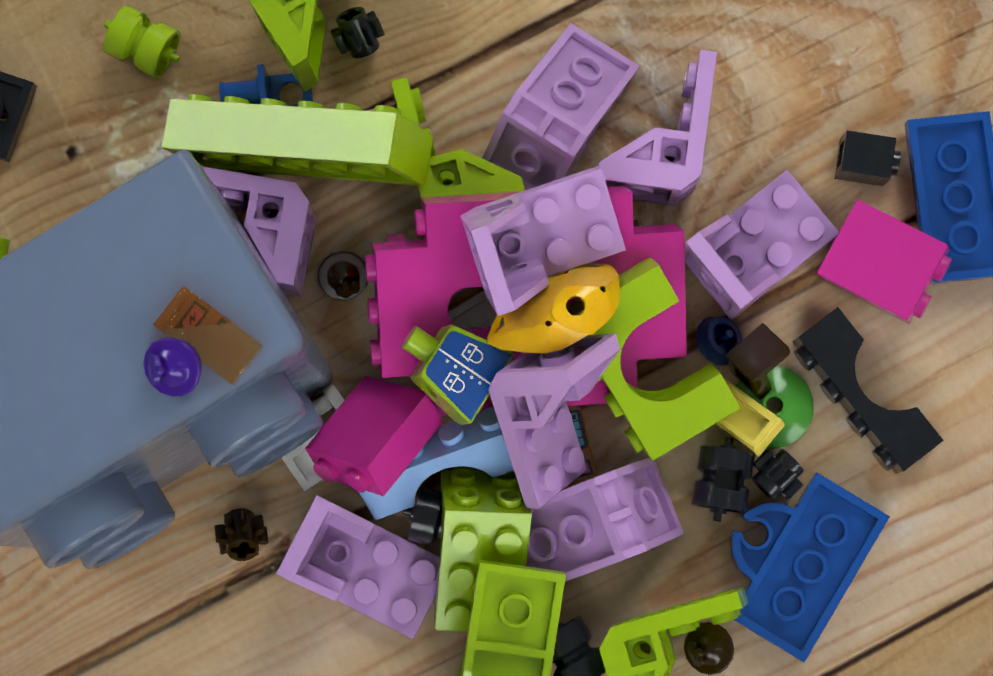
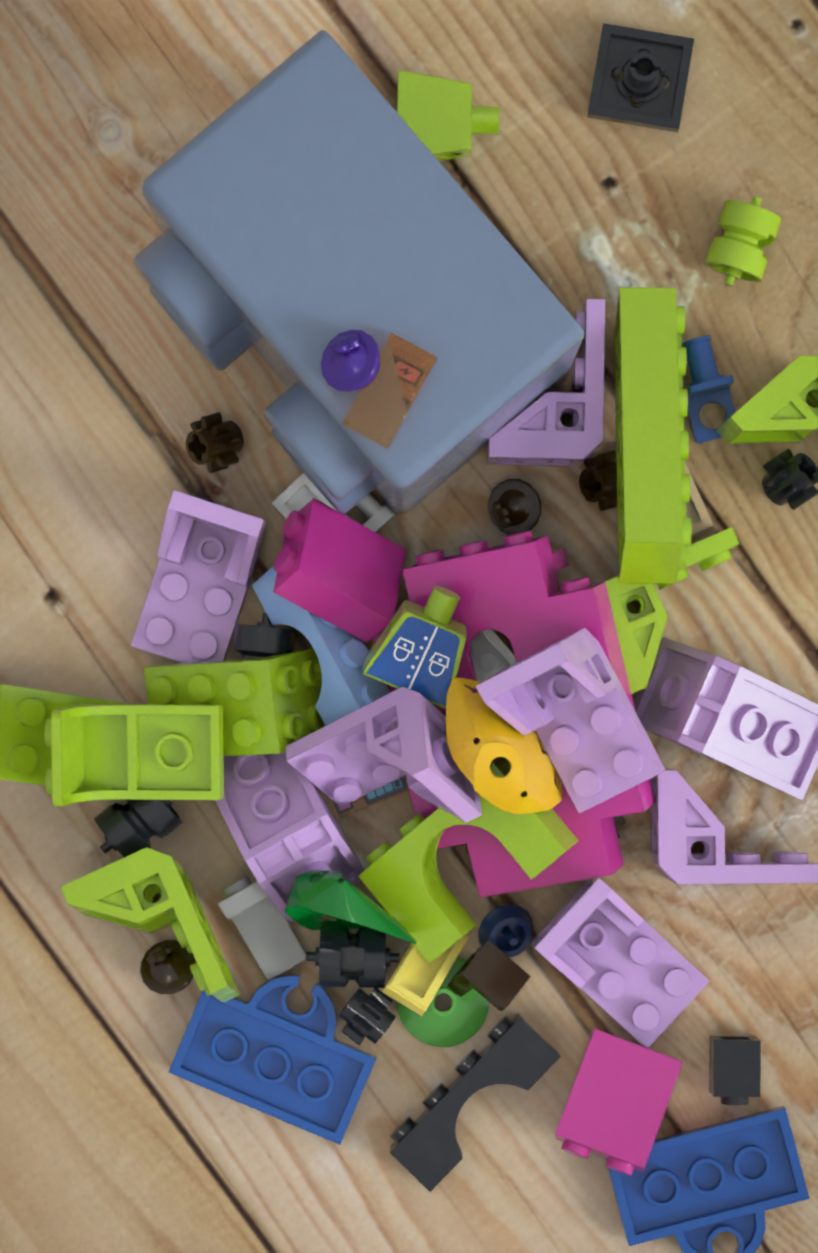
camera: 80 degrees right, 5 degrees up
(332, 195) = (599, 480): none -> dark brown gear
(672, 480) = (337, 898): none -> green piece
(684, 557) = (262, 927): none -> light grey bracket

